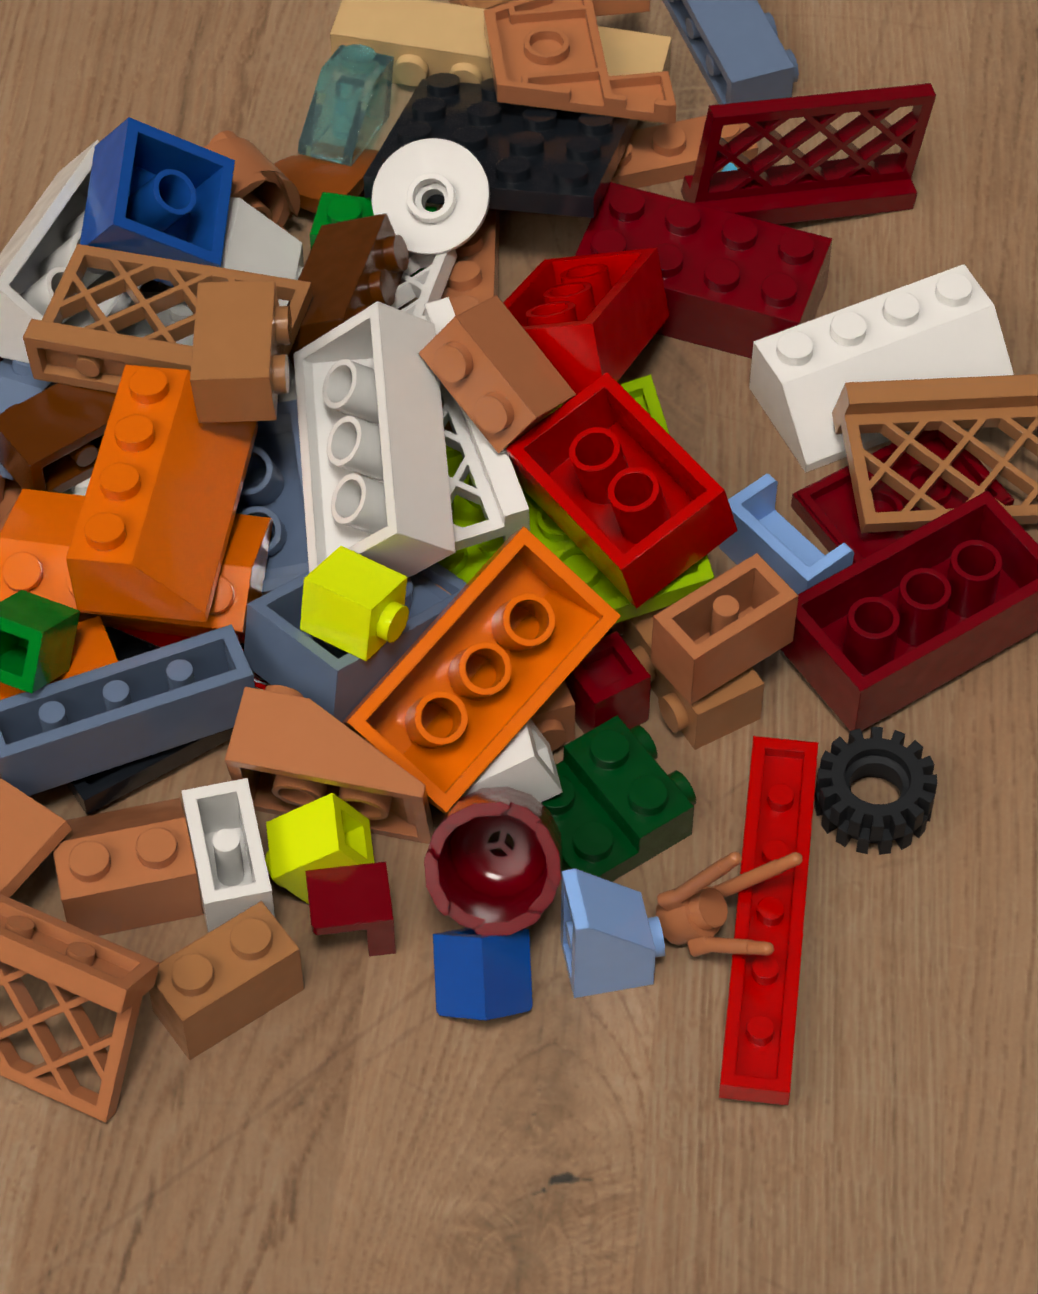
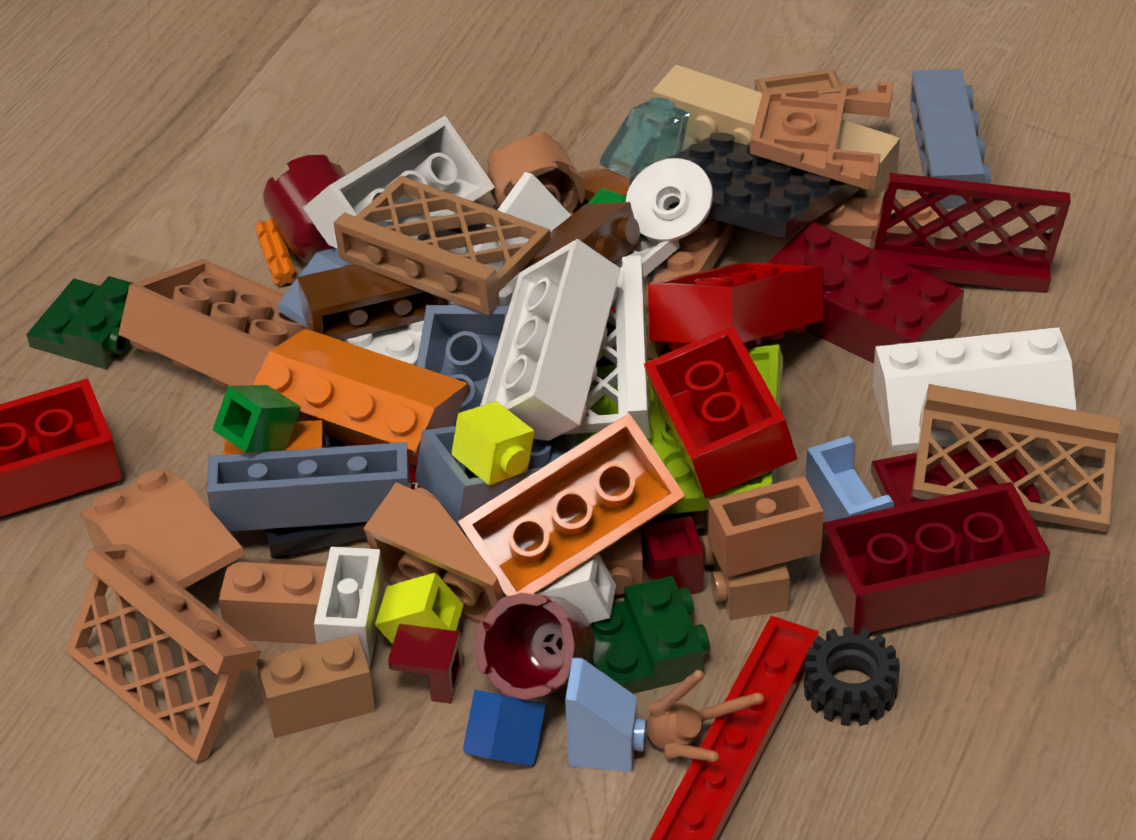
camera: 20 degrees right, 10 degrees down
(157, 196) = (470, 155): blue brick -> none
(158, 502) = (385, 344): orange slope -> none
(238, 351) = (469, 254): medium nougat brick -> none
(496, 372) = (650, 307): nougat brick -> none

